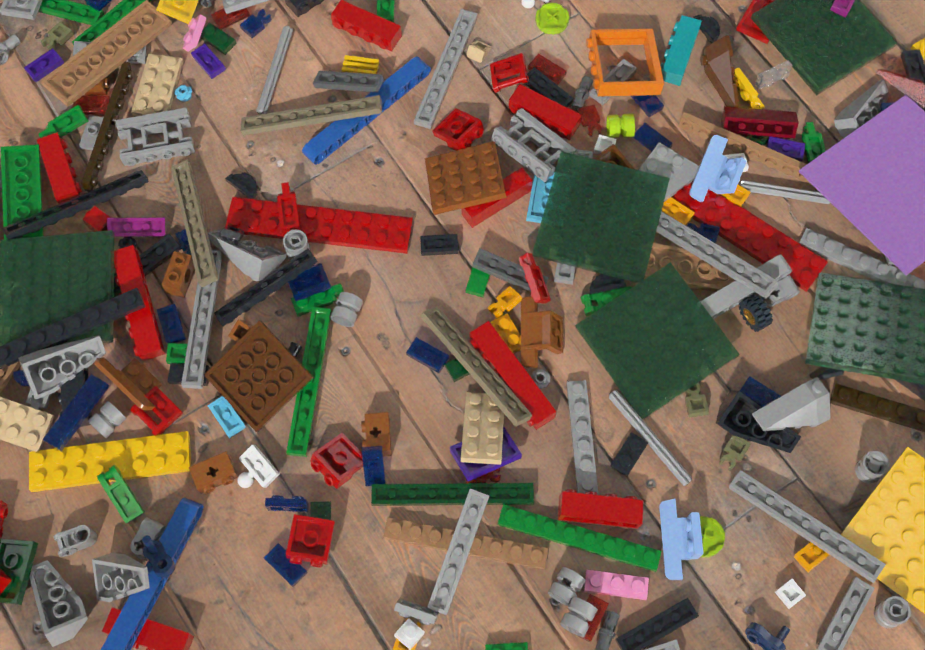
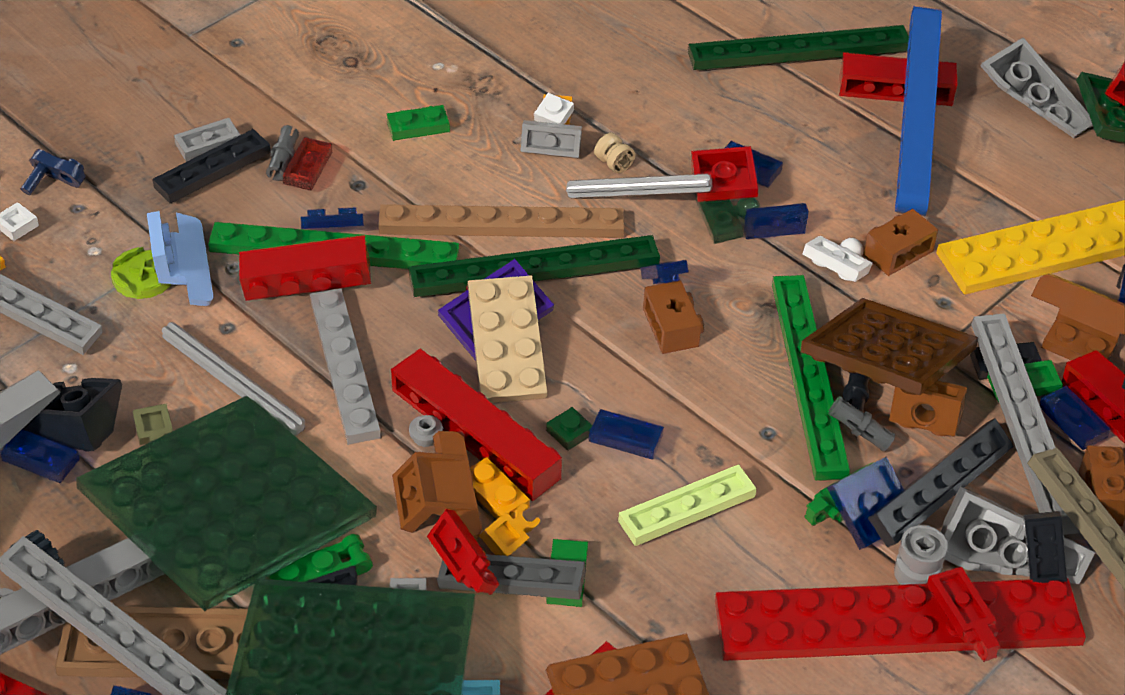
camera: 165 degrees right, 20 degrees down
(71, 540) = (1051, 152): light grey piece -> none
(107, 419) = (1097, 270): light grey wheel -> none
(118, 576) = (968, 108): light grey wedge -> none
(120, 494) = (1020, 199): green plate -> none
(148, 527) = (954, 163): light grey piece -> none
(156, 555) = (925, 118): dark blue piece -> none
(164, 409) = (1021, 308): red plate -> none
(226, 416) = (911, 302): medium azure plate -> none
(244, 183) = (1075, 665): black plate -> none
(294, 334) = (861, 424): none -> dark grey pin
(337, 460) = (722, 276): red plate -> none
(346, 309) = (788, 473): light grey wheel -> none
(369, 541) = (639, 186): none -> light grey axle
(375, 589) = (617, 155): none -> tan wheel
(406, 304) = (686, 505): none -> yellowish green plate
(439, 244) = (657, 611): black plate -> none
(458, 552) = (507, 194): light grey plate -> none
(476, 366) = (543, 418): dark tan plate -> none
(563, 593) = (345, 182): light grey wheel -> none
(578, 556) = (319, 219): none -> clear blue plate
(579, 615) = (324, 141): light grey wheel -> none
(616, 584) = (271, 205): bright pink plate -> none
(629, 454) = (265, 353): black plate -> none
(736, 450) = (94, 368): olive plate -> none

